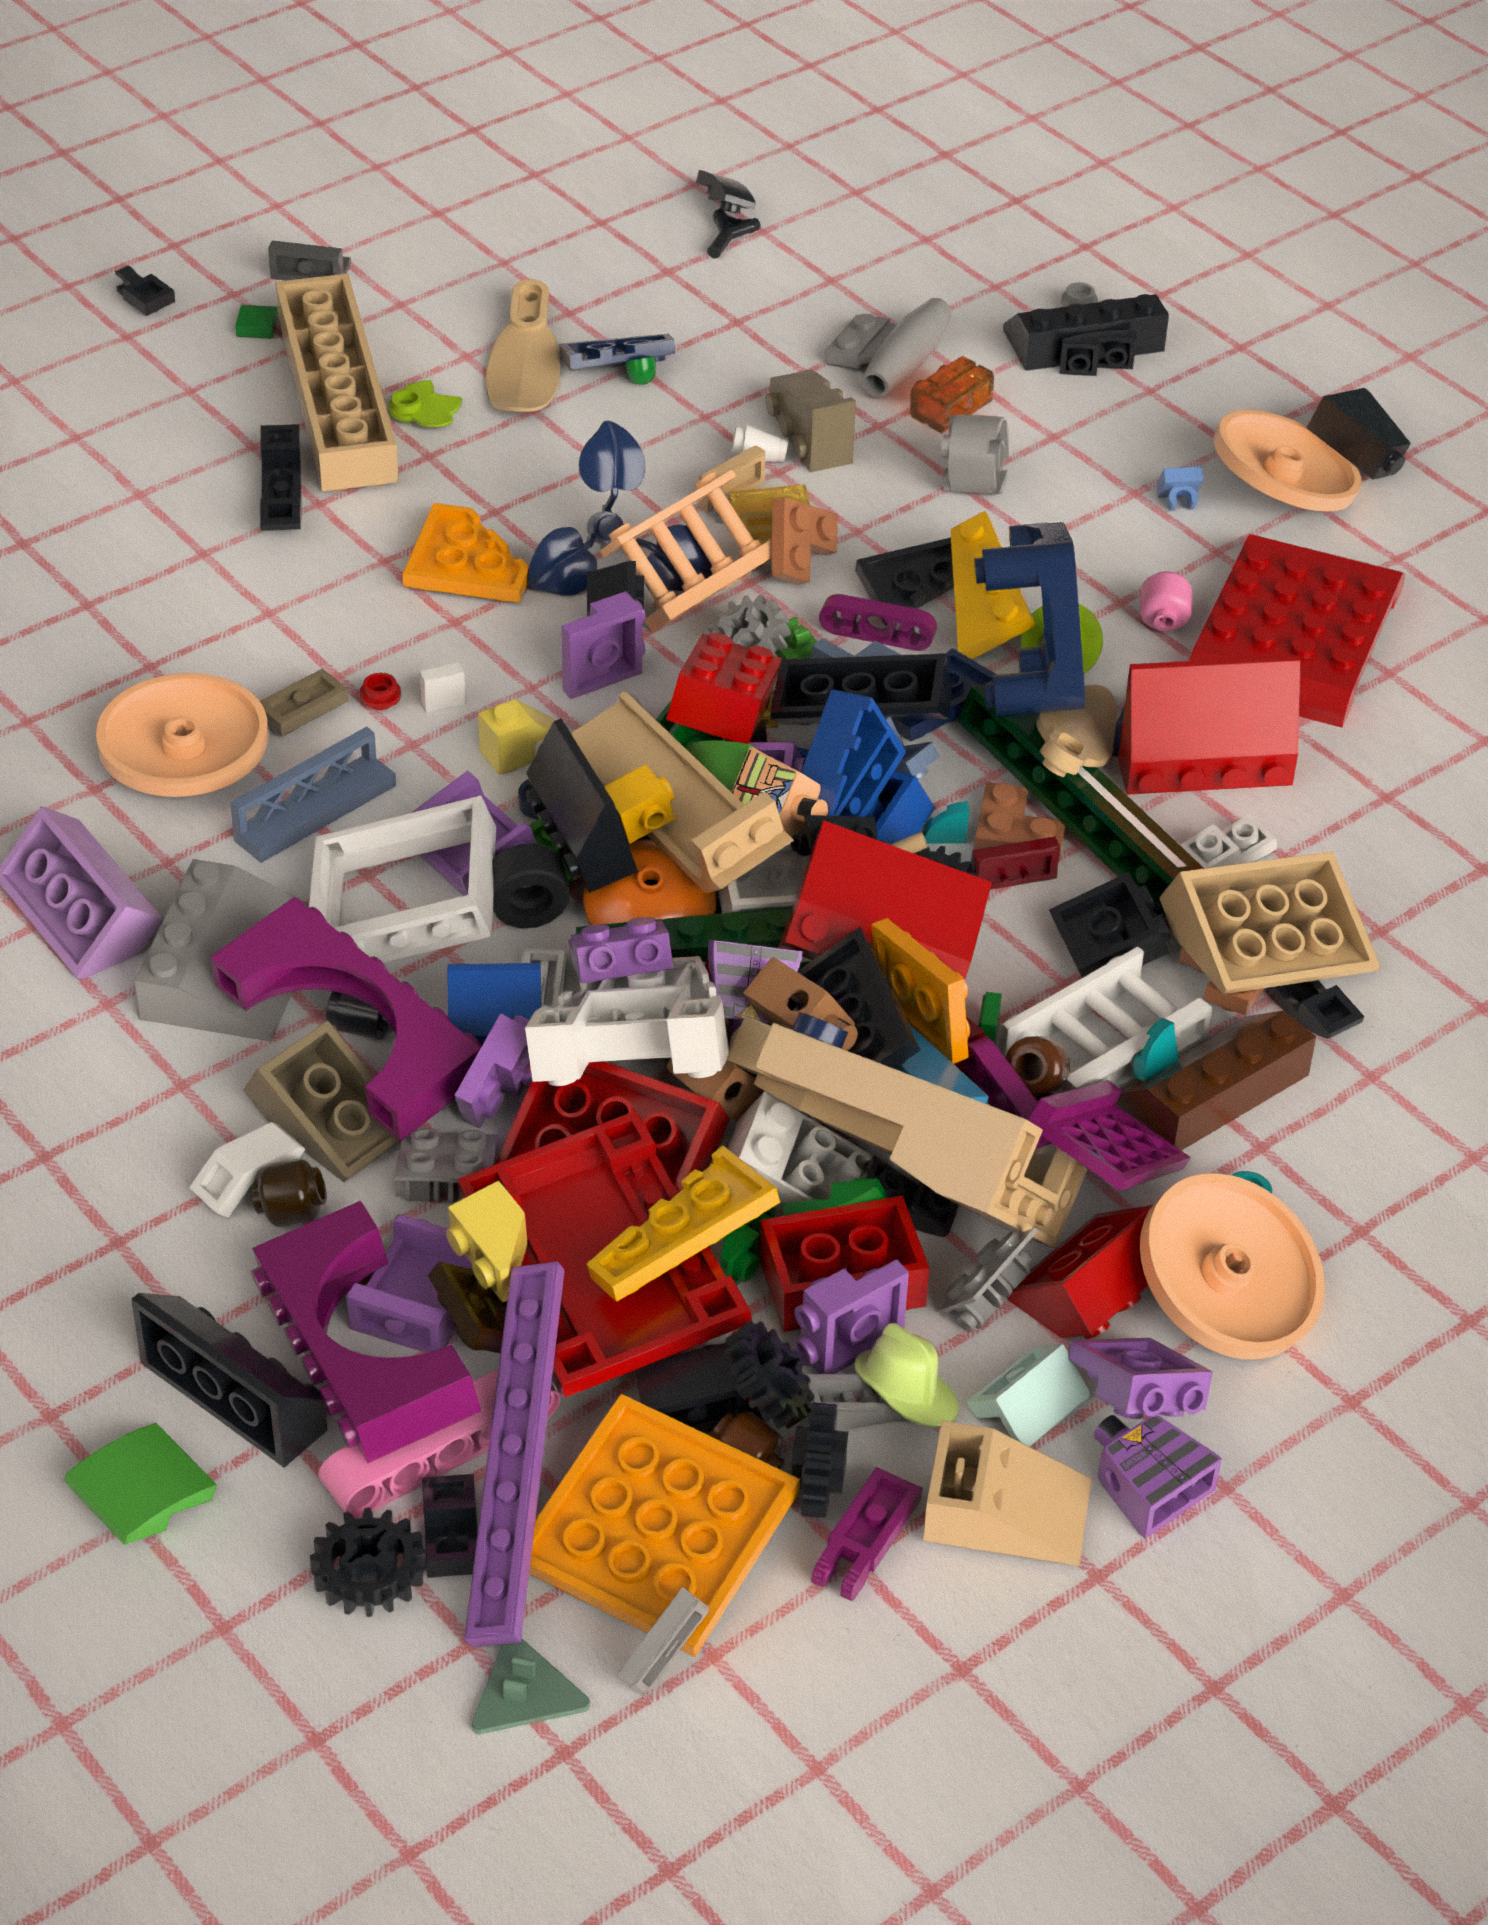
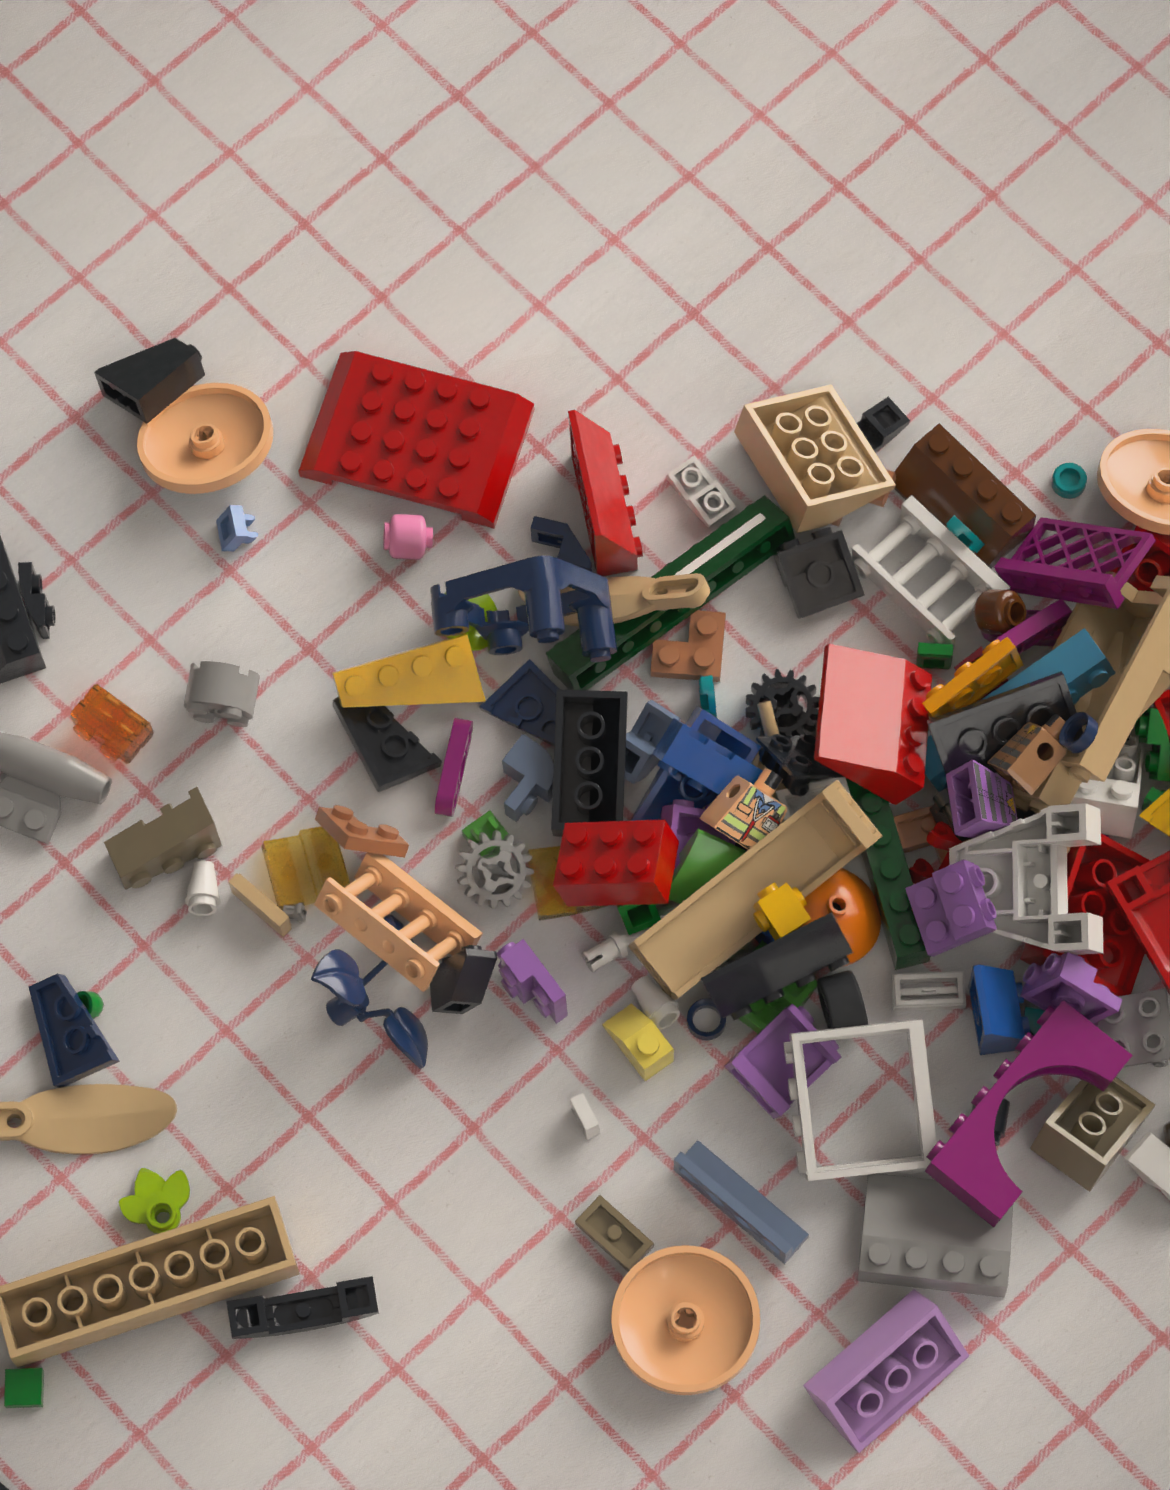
camera: 90 degrees left, 25 degrees up
(380, 691) = (589, 1160): red plate -> none
(464, 558) = (394, 1127): light orange plate -> none
(1017, 862) = (749, 644): dark red plate -> none

